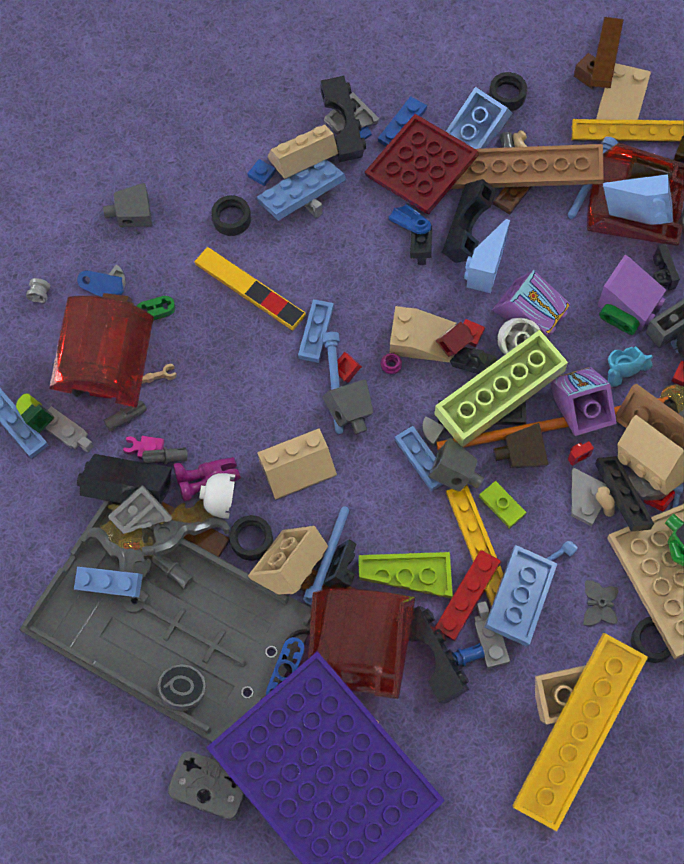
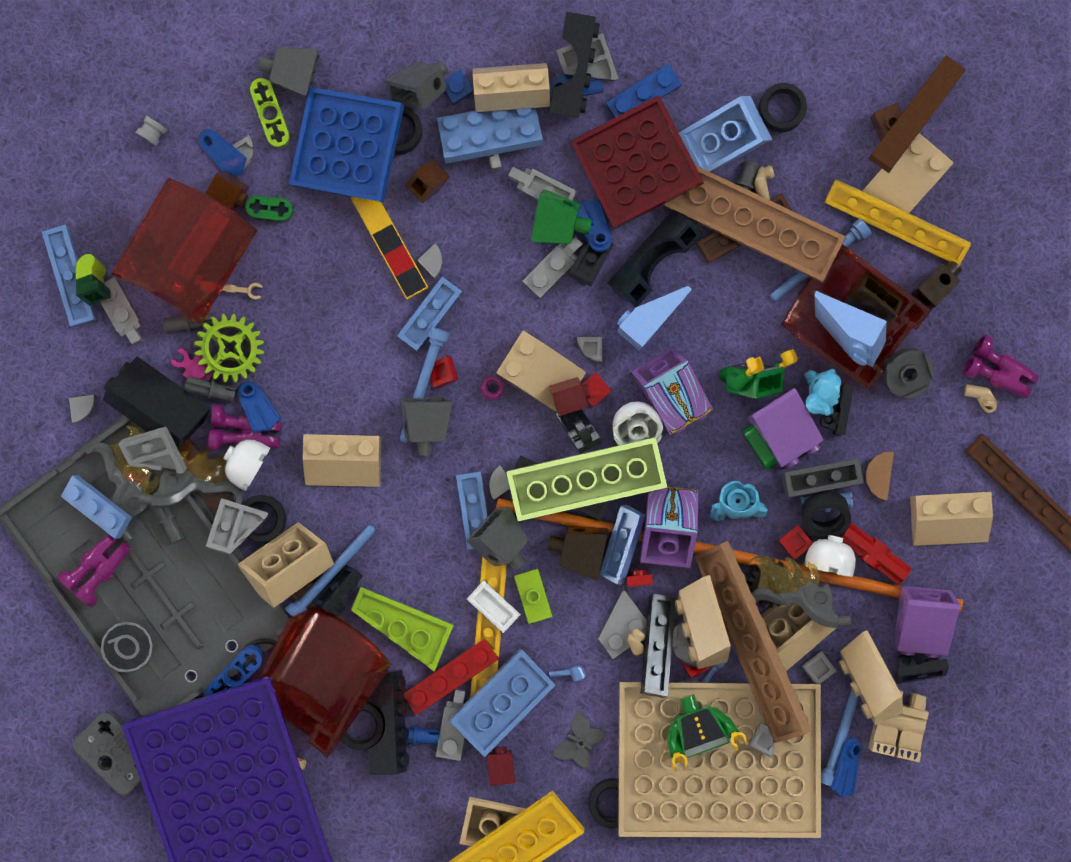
camera: 20 degrees right, 20 degrees up
(63, 516) = (81, 407): none -> light grey tile
(126, 236) = (257, 98): none -> lime beam
(127, 624) = (104, 566): none -> magenta piece
(166, 407) = (236, 340): none -> lime gear
(196, 237) = (346, 144): none -> blue plate
(210, 453) = (257, 408): none -> blue piece
(231, 546) = (233, 525): none -> light grey wing
(237, 170) = (418, 84): none -> dark grey torso
(270, 238) = (427, 181): none -> reddish brown brick
(299, 294) = (432, 261): none -> light grey tile
(359, 211) = (533, 182): none -> light grey hinge
(383, 222) = (558, 219): none -> green torso
(394, 262) = (552, 268): none -> light grey hinge
(429, 663) = (374, 739): none -> black tyre
(452, 304) = (591, 347): none -> light grey tile
(475, 523) = (493, 606): none -> white tile
(546, 649) = (500, 766): none -> dark red brick
(554, 429) = (622, 544): none -> medium blue plate
(589, 266) = (756, 379): none -> green torso
(646, 254) = (823, 391): none -> medium azure hair

